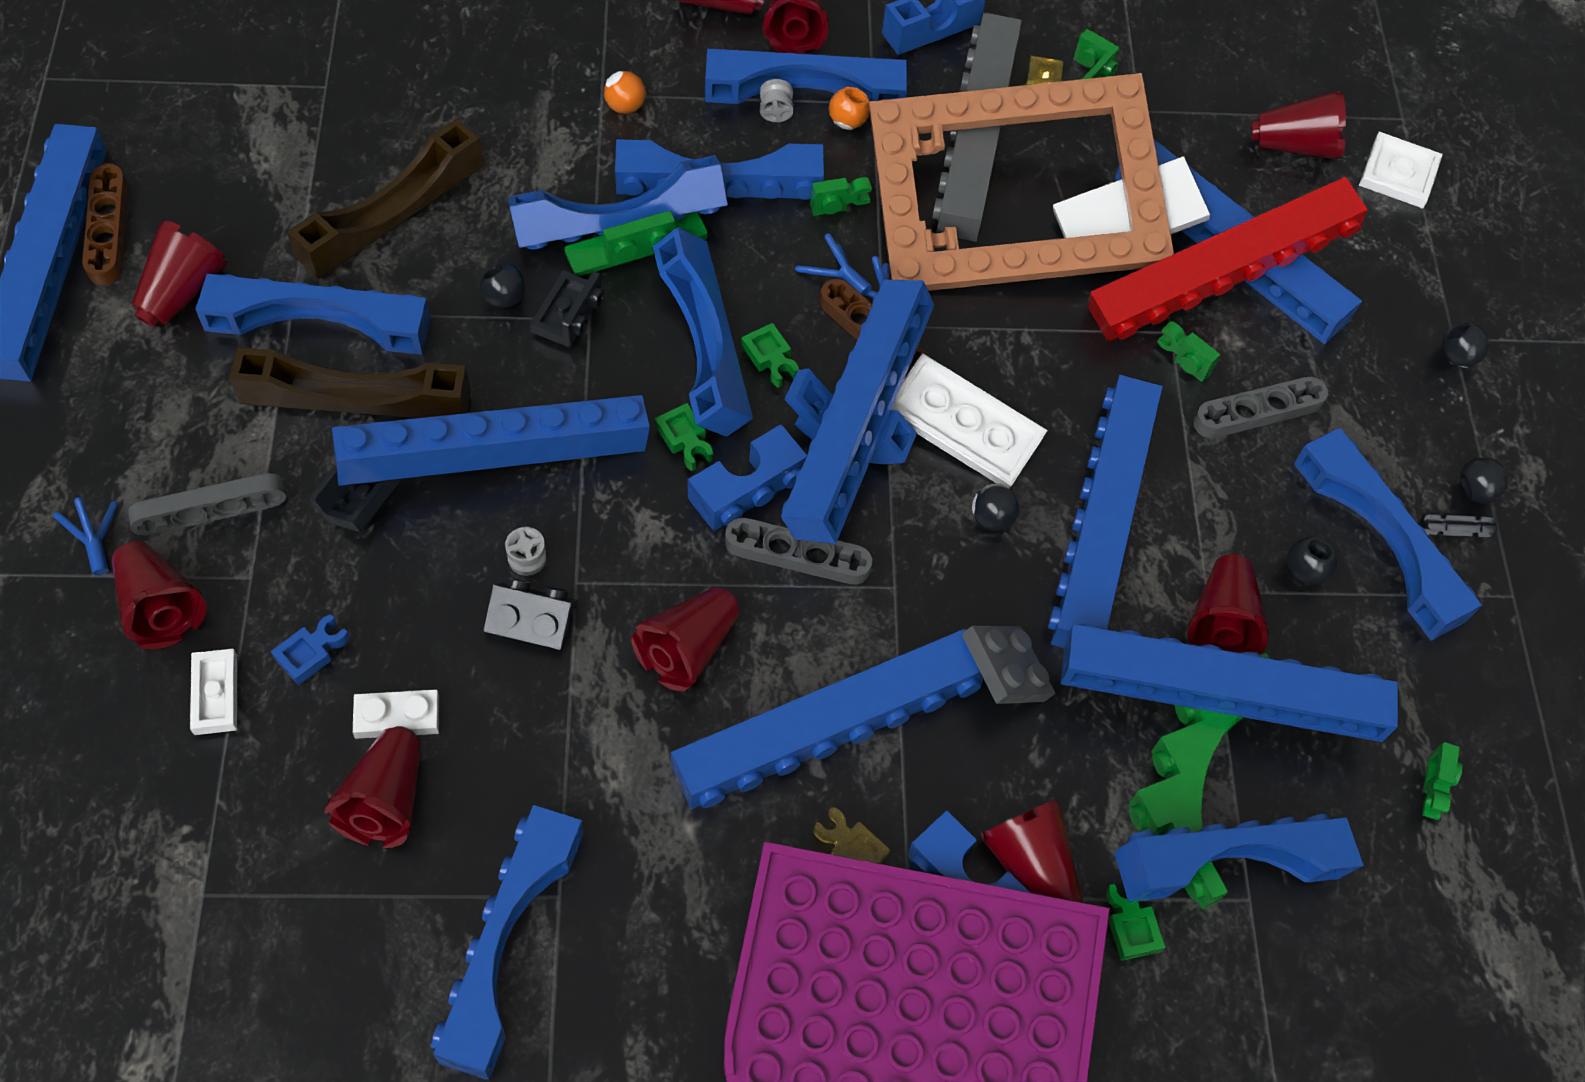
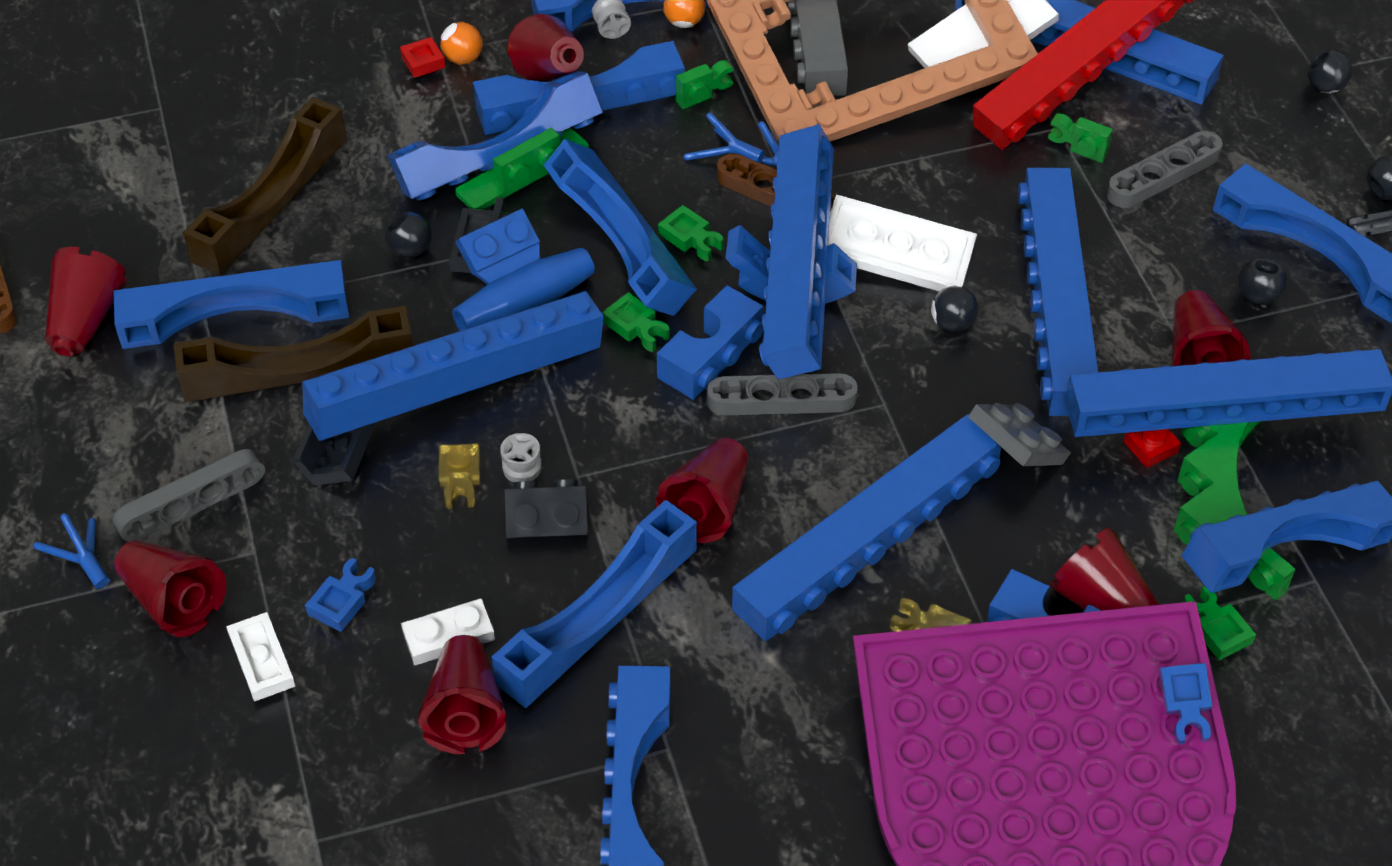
camera: 10 degrees left, 10 degrees down
(465, 545) = (459, 471): none -> clear yellow plate
(480, 763) = (546, 651): none -> blue arch
(583, 97) = (422, 57): none -> red plate
(586, 363) = (516, 278): none -> blue plate
(695, 120) = (543, 49): none -> dark red cone
(1063, 1009) = (1187, 693): none -> blue plate
(1140, 711) = (1152, 445): none -> red plate

